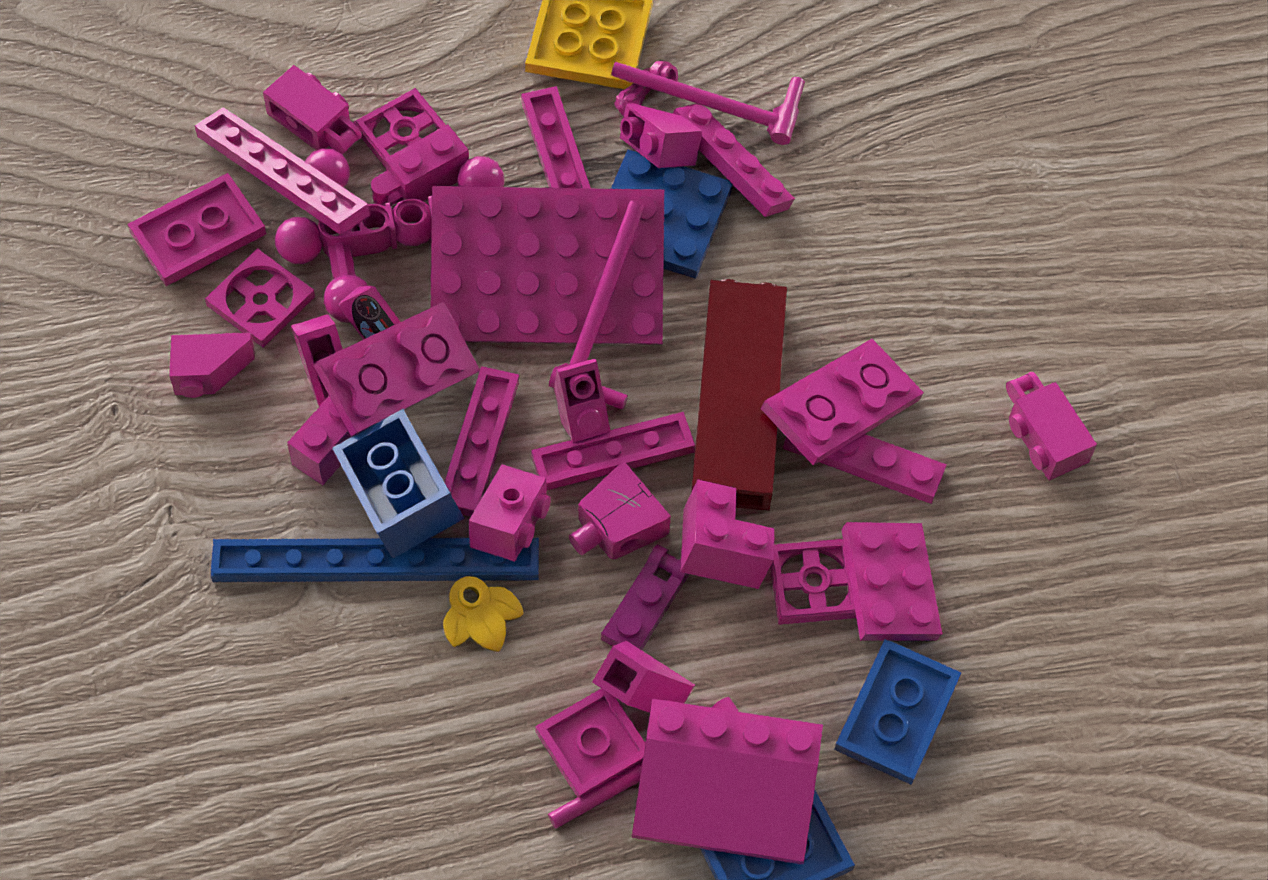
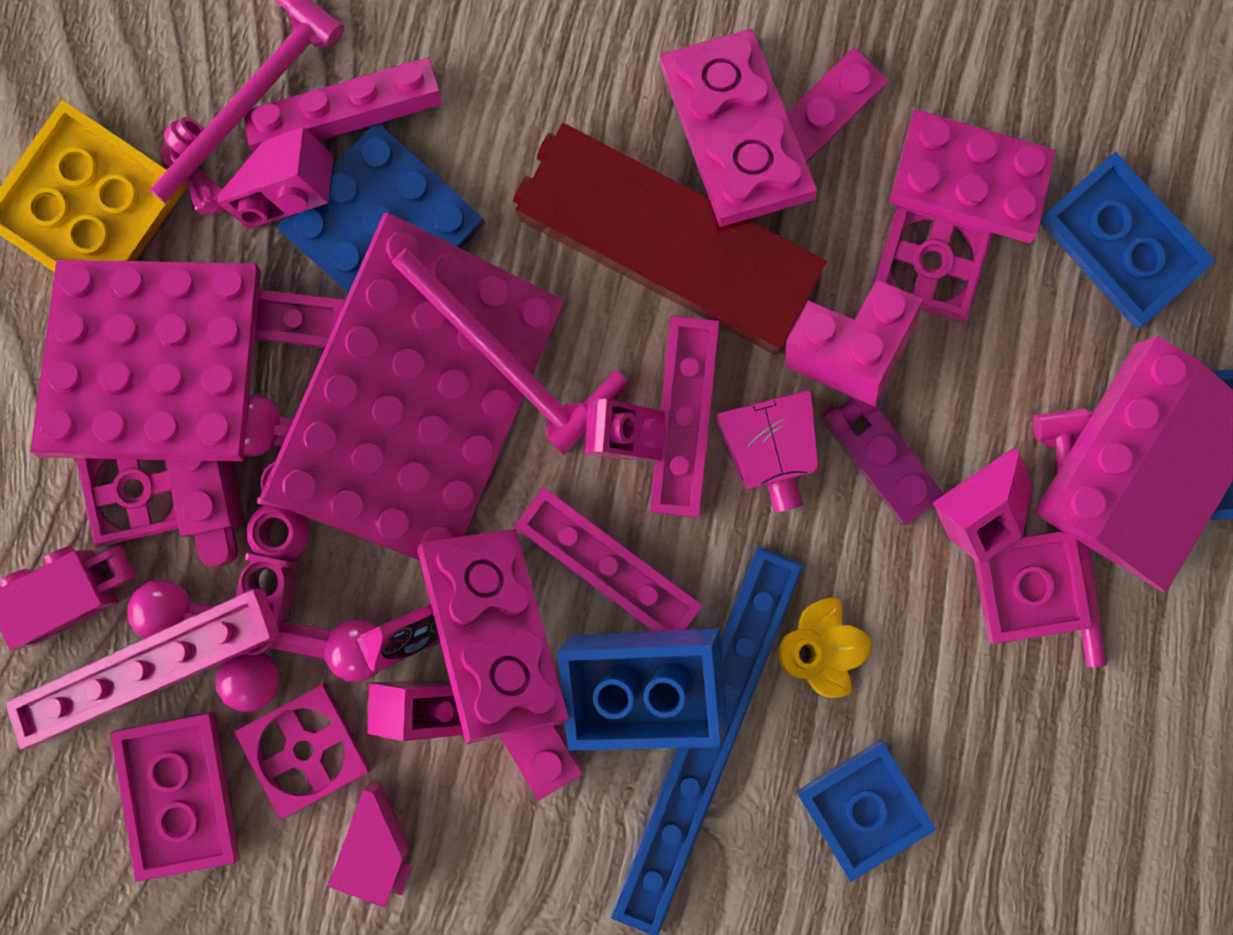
camera: 60 degrees left, 25 degrees up
(366, 686) = (866, 810): none -> blue plate
(498, 99) = (147, 361): none -> dark pink plate
(509, 513) = (725, 571): dark pink brick -> none

